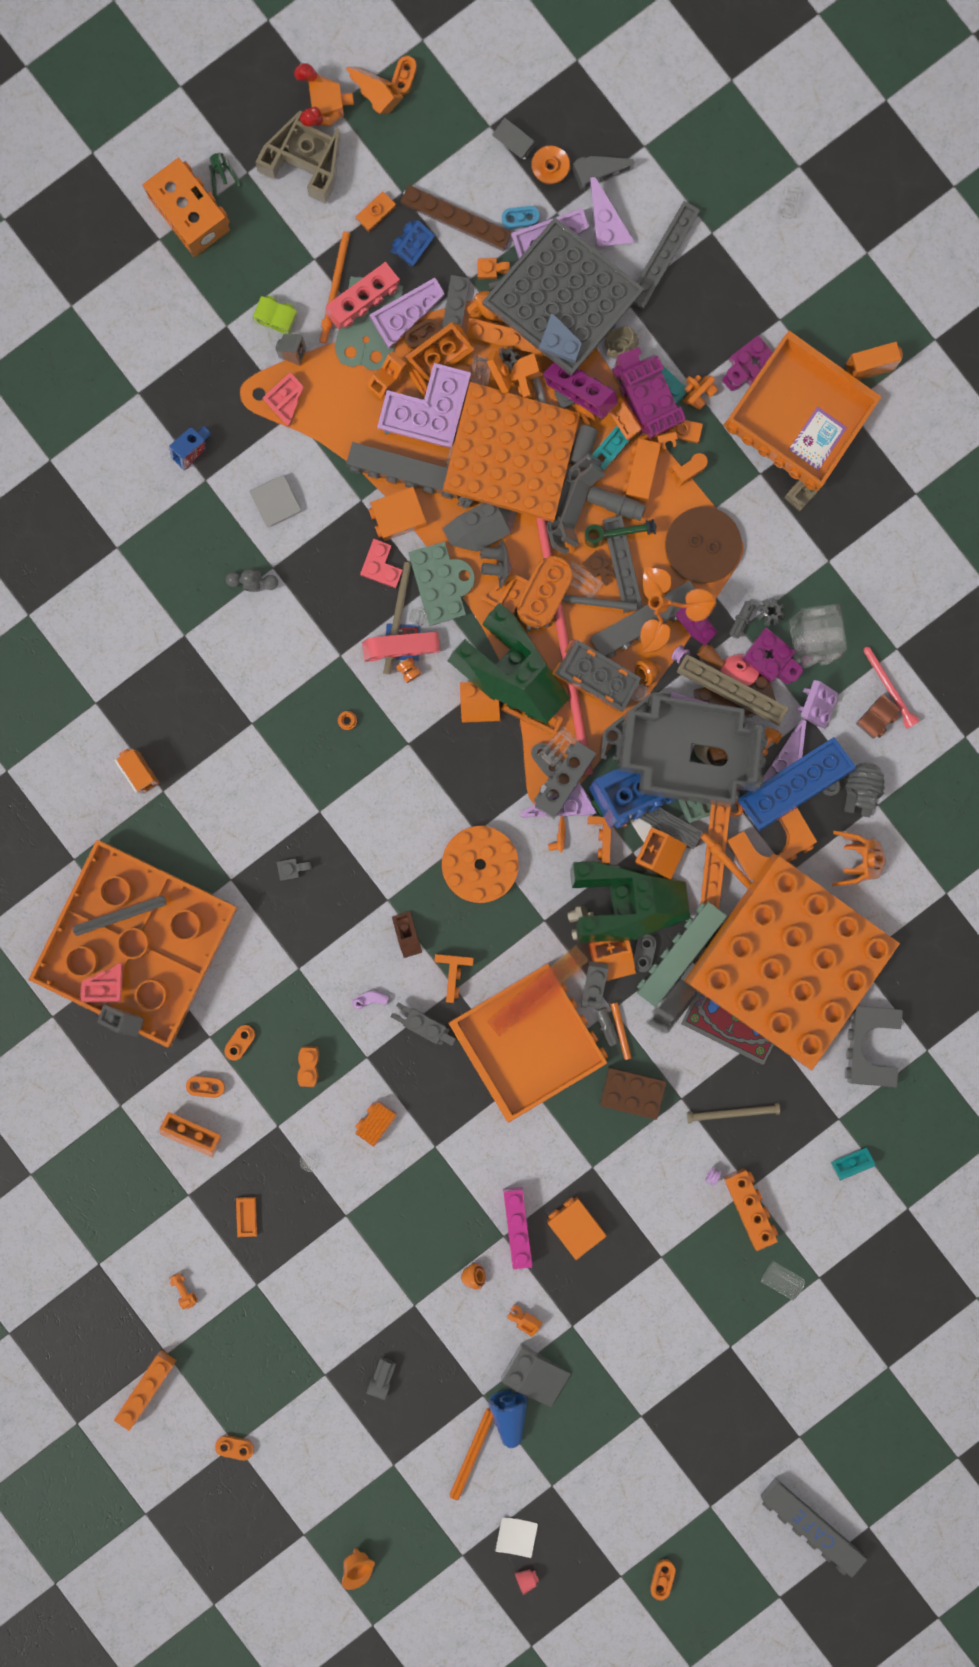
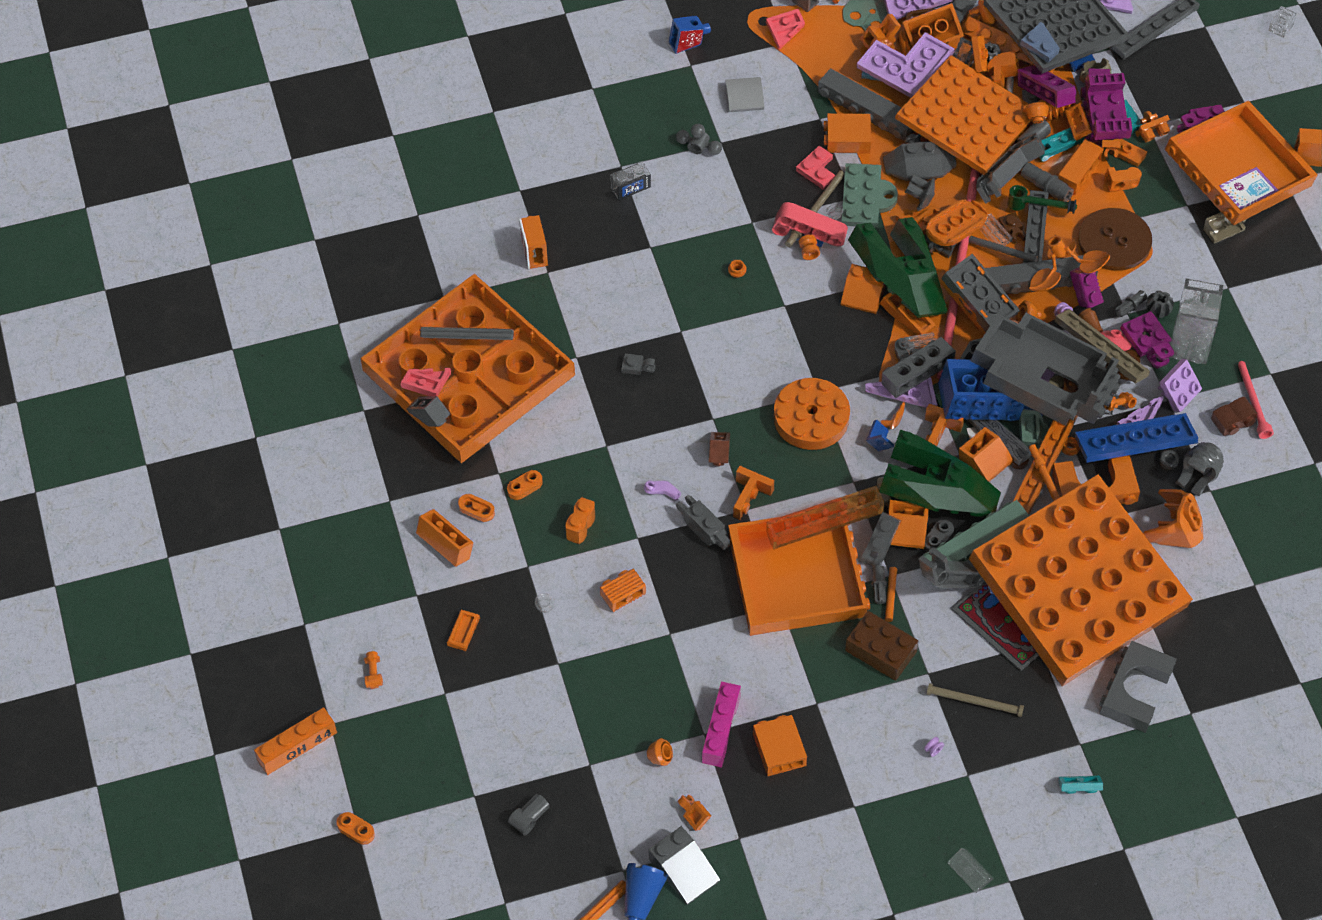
camera: 25 degrees right, 30 degrees down
(202, 656) = (630, 180): none -> brick
(550, 866) = (877, 437): none -> blue bracket
(581, 425) = (1037, 112): none -> orange cone
(750, 1209) = (961, 788): orange brick -> none

